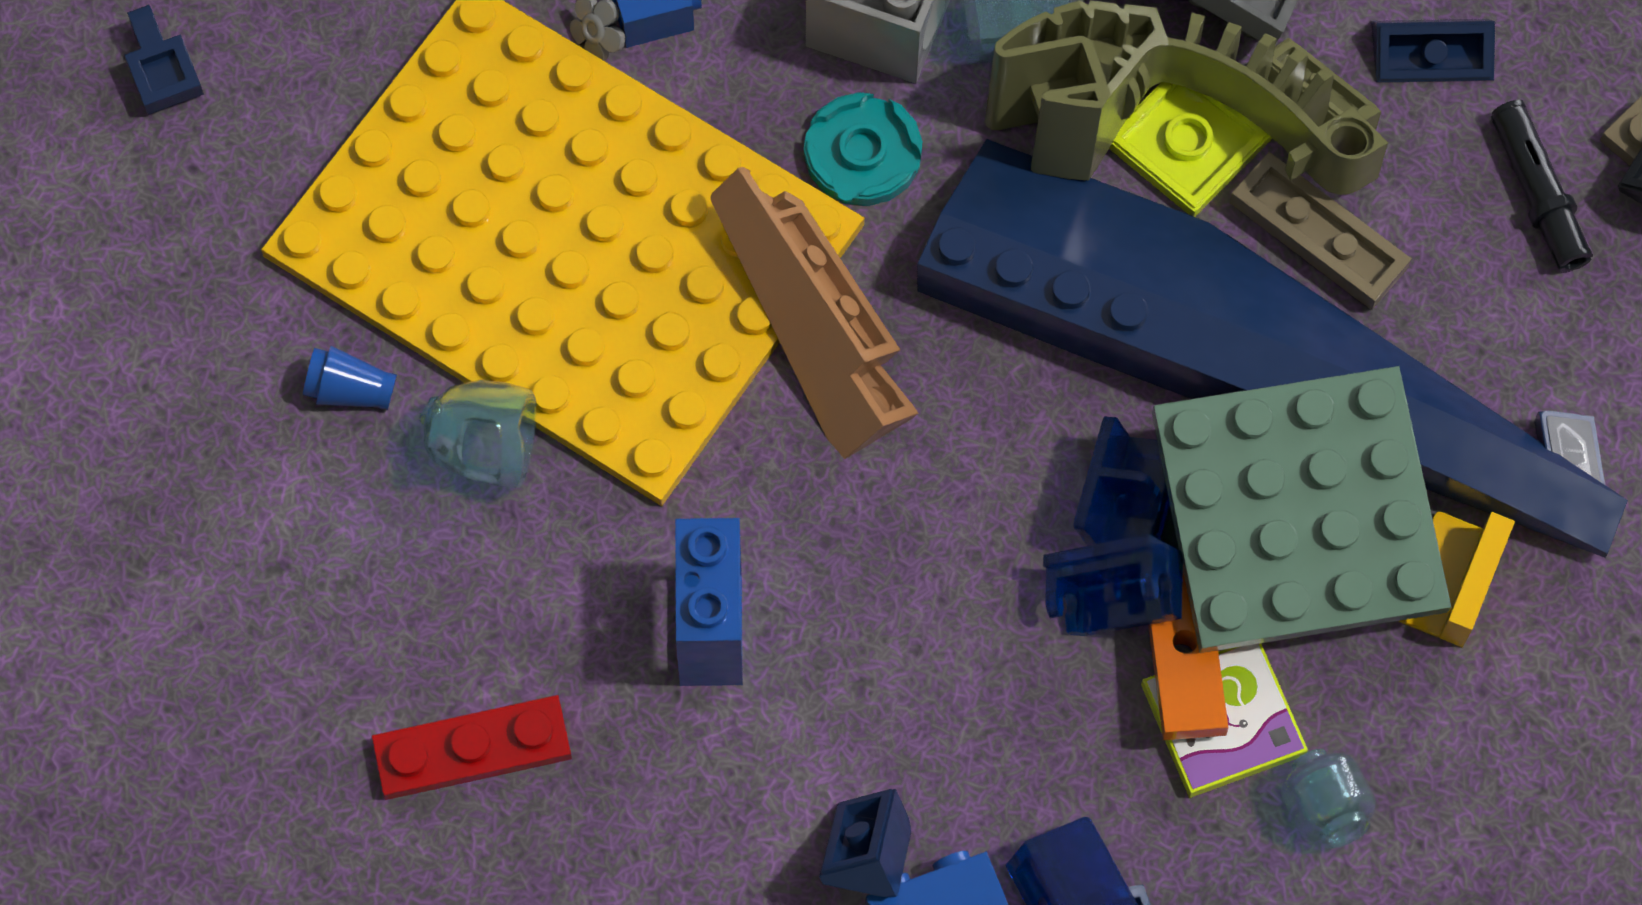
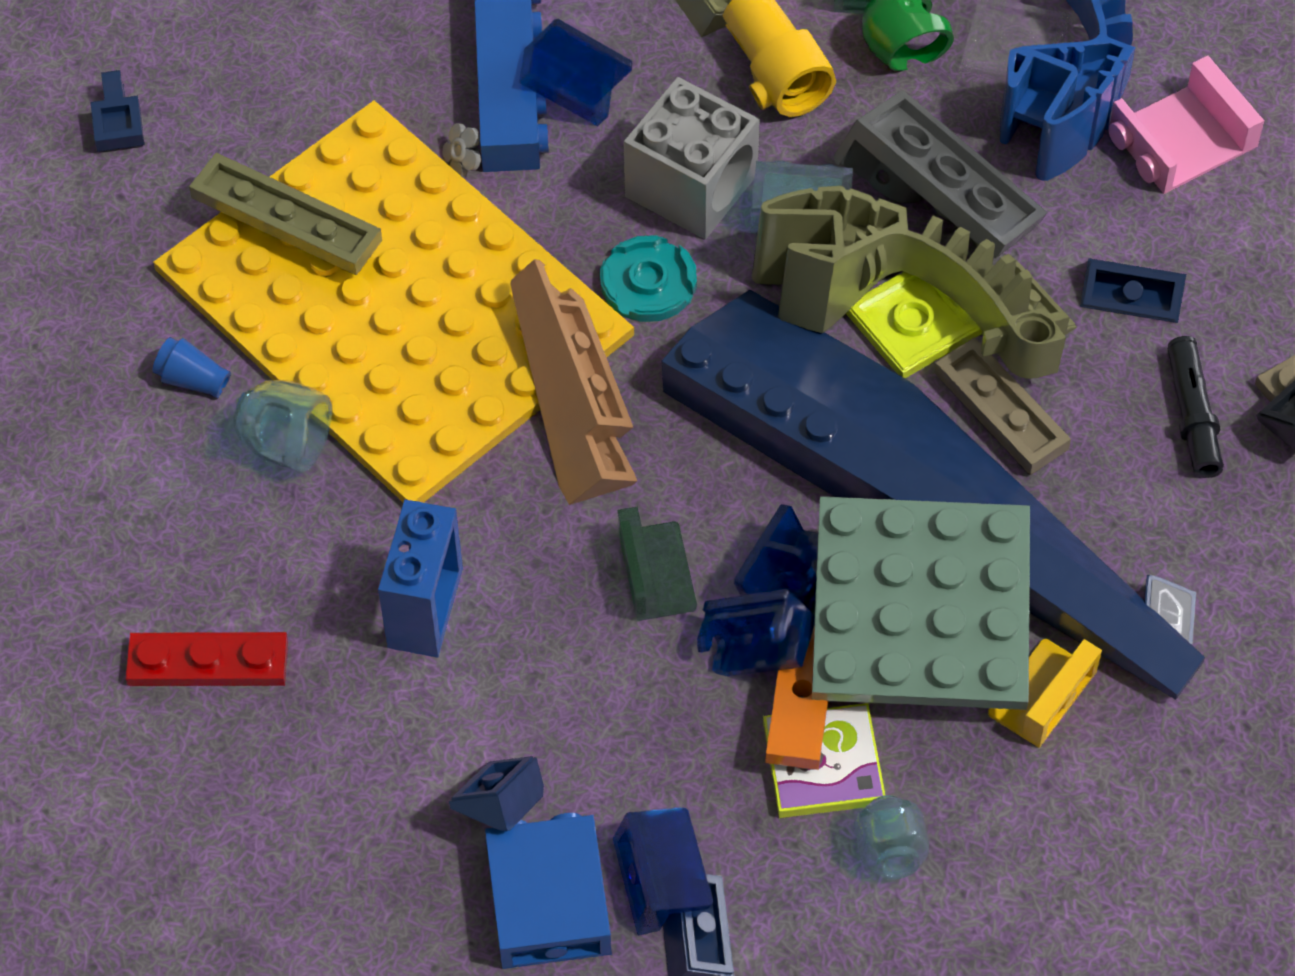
camera: 15 degrees right, 10 degrees down
(411, 159) = (286, 213): none -> olive plate
(968, 518) = (655, 567): none -> clear green panel

